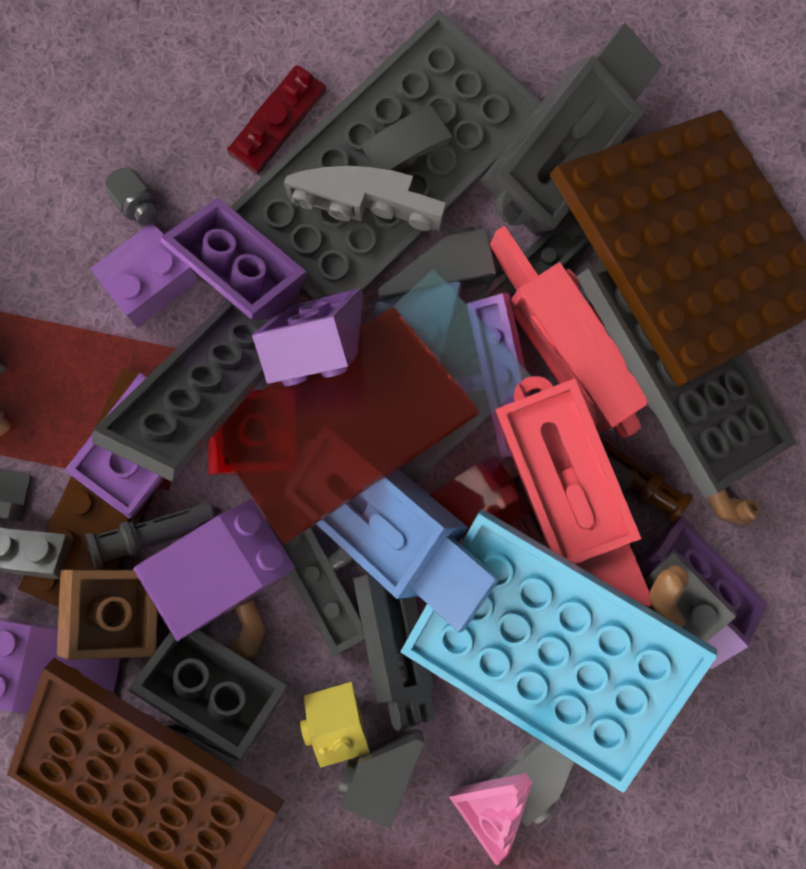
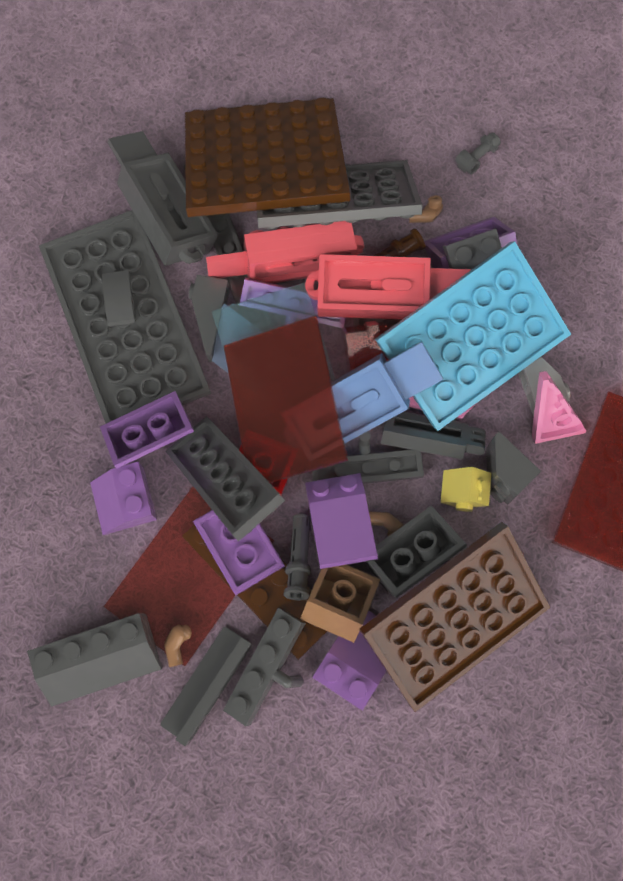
camera: 60 degrees left, 5 degrees down
(132, 195) = (67, 486): dark grey arm -> none
(276, 119) = (59, 375): dark red plate -> none
(311, 338) = (222, 398): medium lavender slope -> none
(352, 189) = (135, 341): light grey slope -> none
(667, 592) = (466, 257): medium nougat arm -> none

